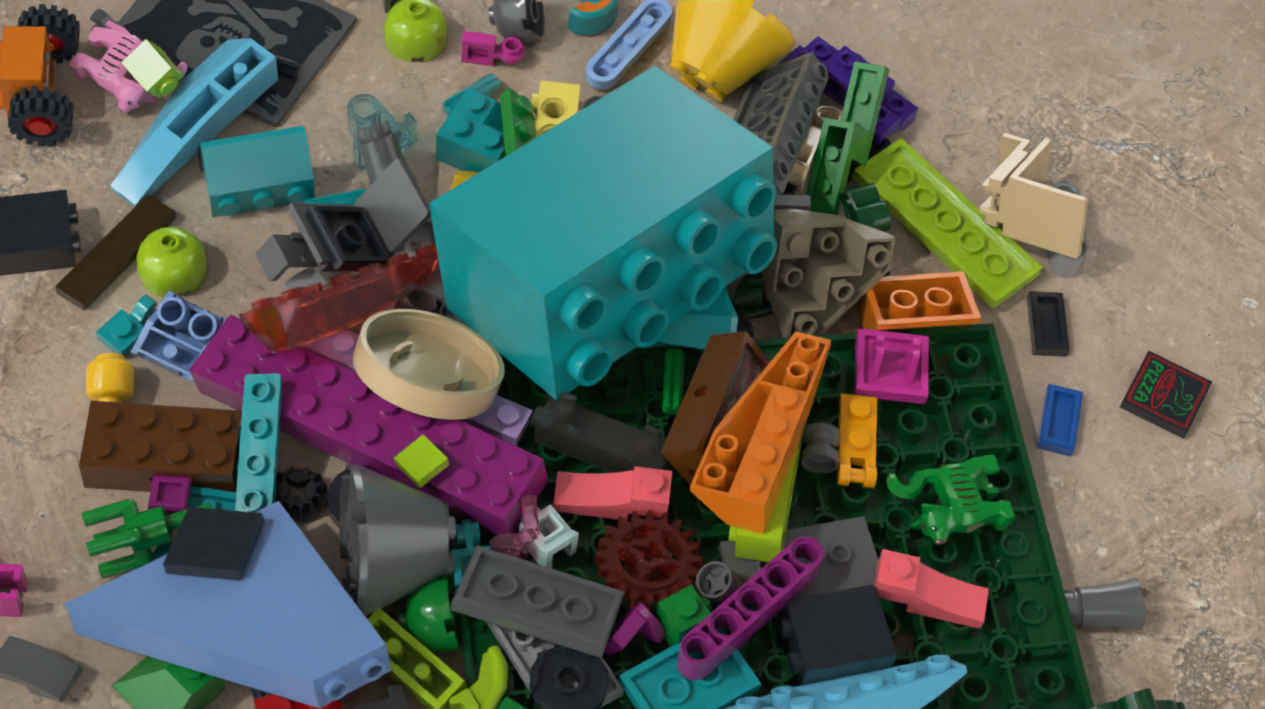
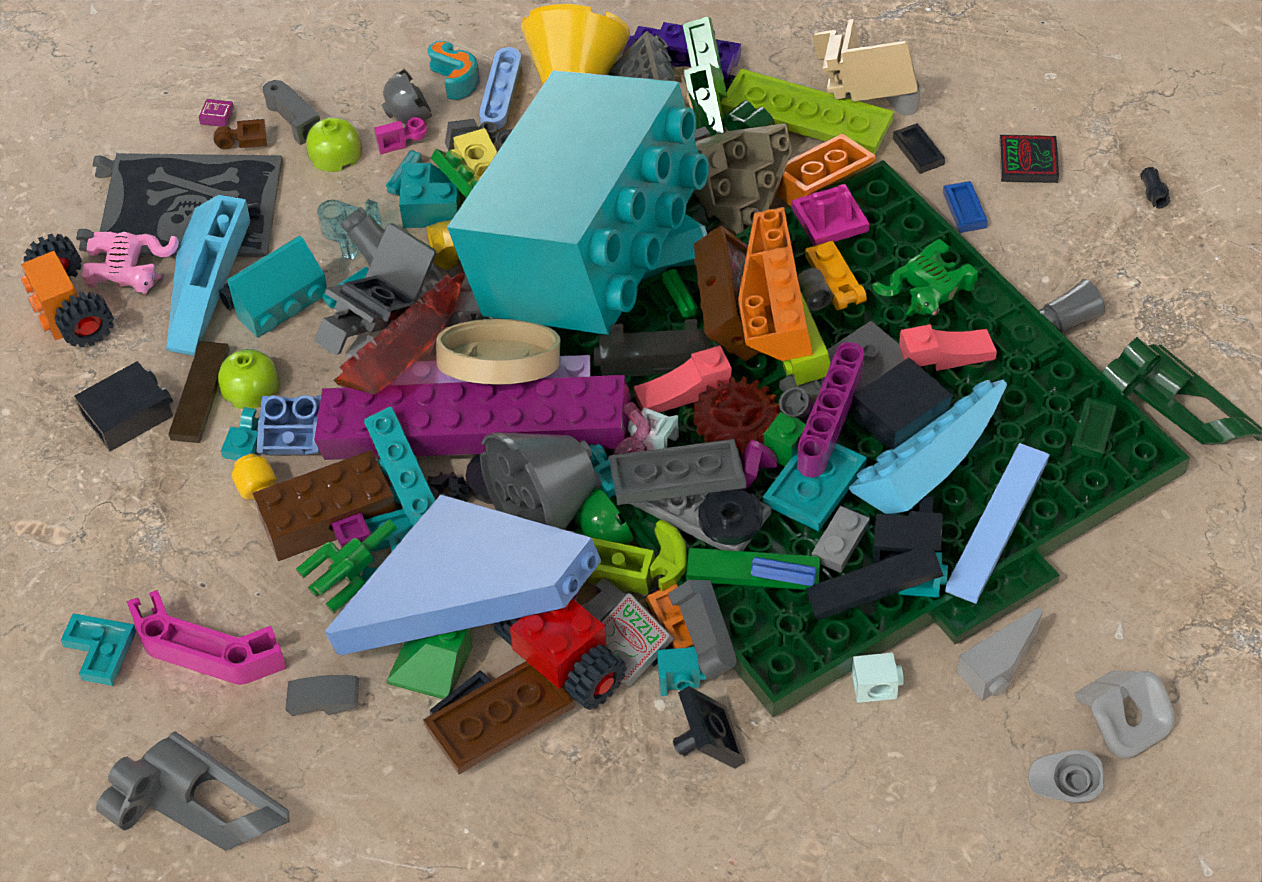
camera: 15 degrees left, 5 degrees down
(153, 69) = (154, 248): brick -> none
(214, 543) = (413, 540): black tile -> none
(421, 461) = (535, 415): lime tile -> none
(564, 74) = (462, 127): none -> dark grey plate

